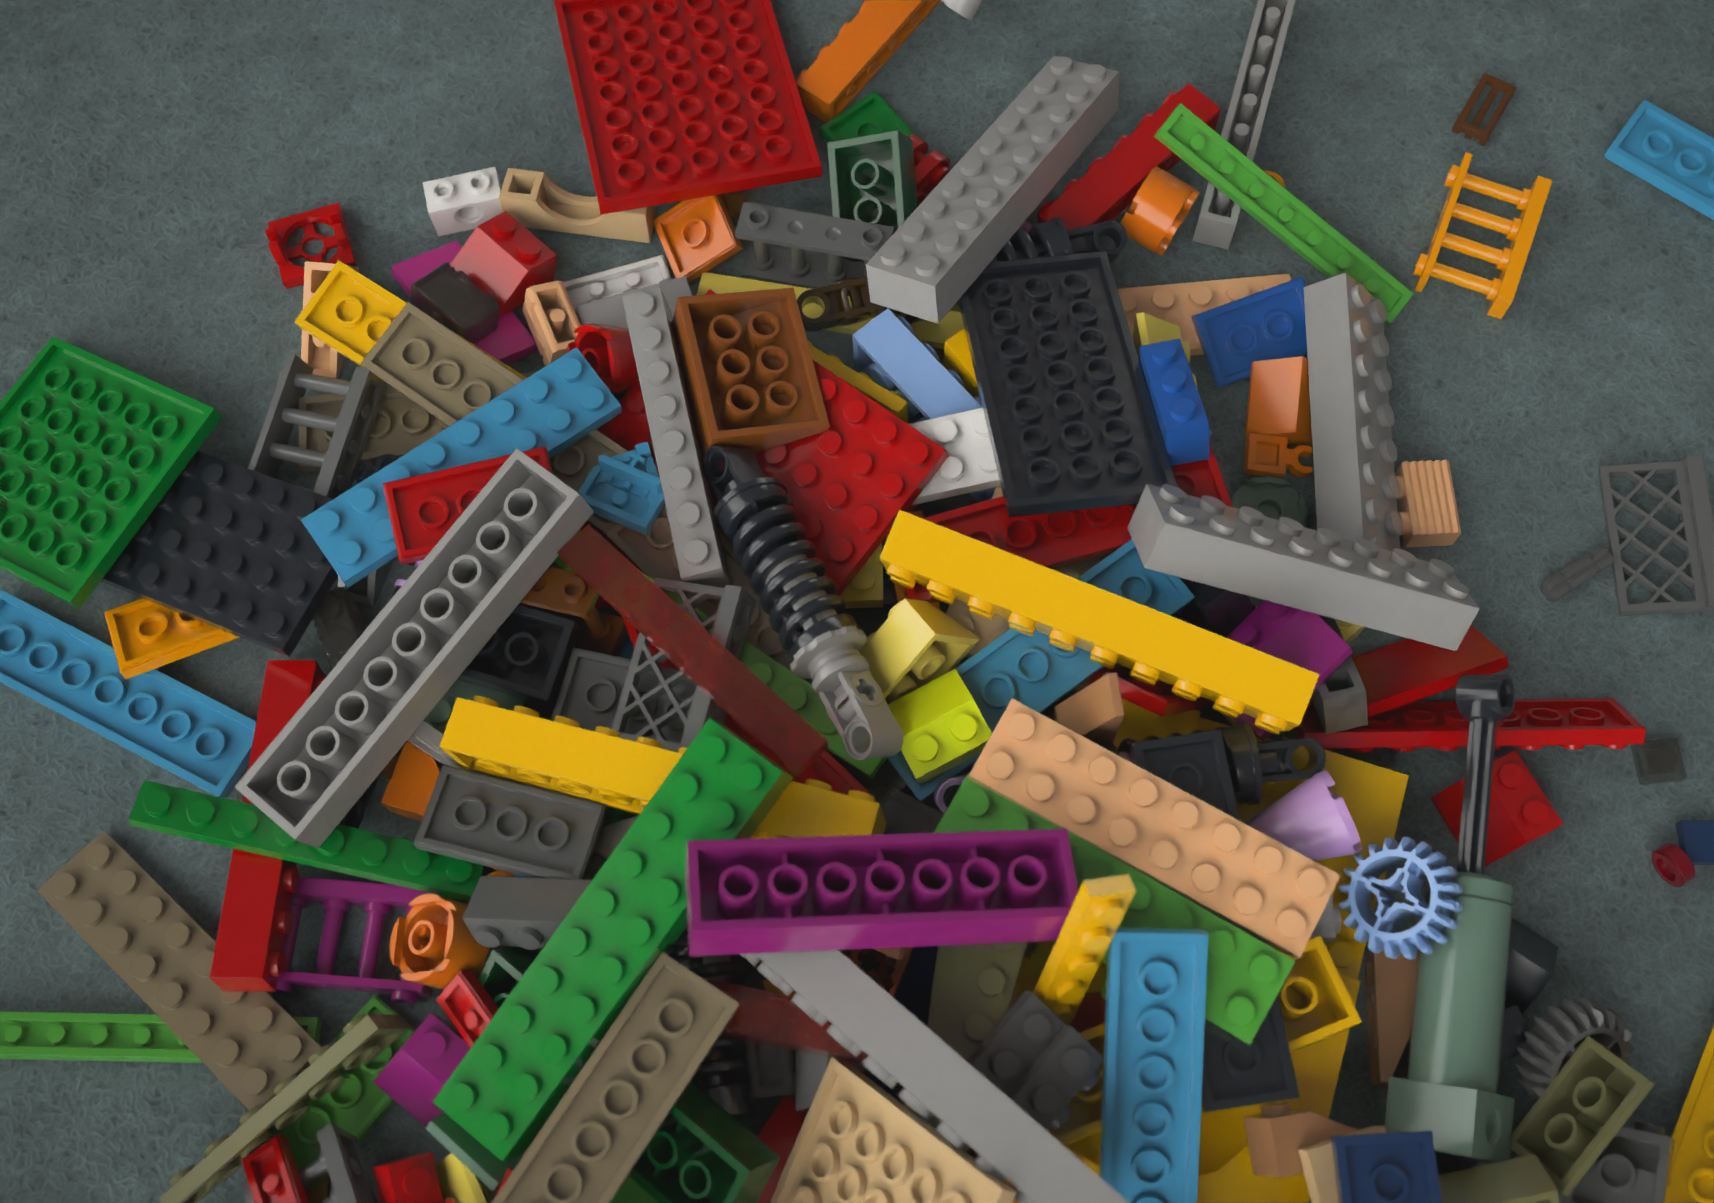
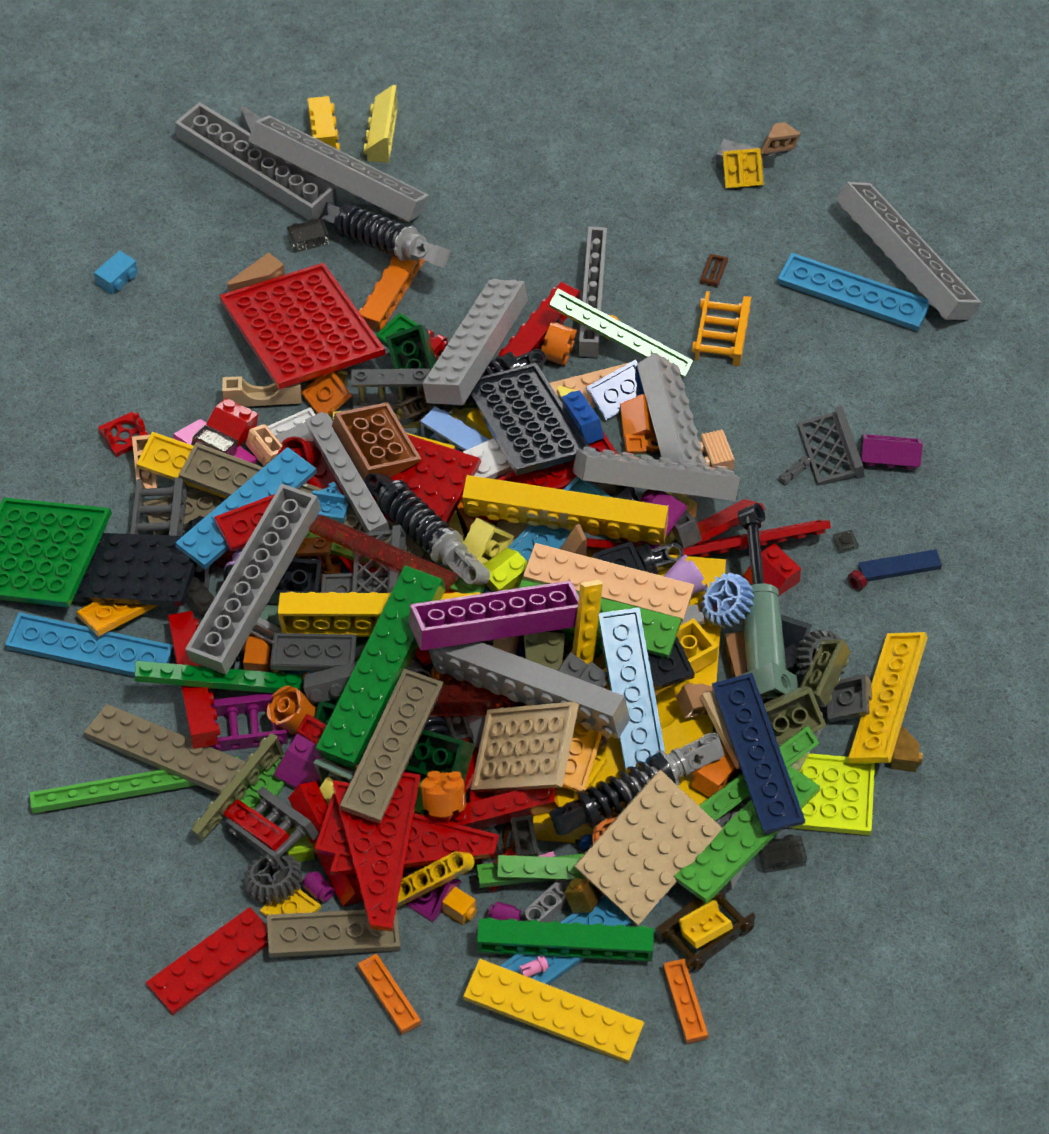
camera: 15 degrees left, 15 degrees down
(463, 200) = (200, 398): white brick -> none

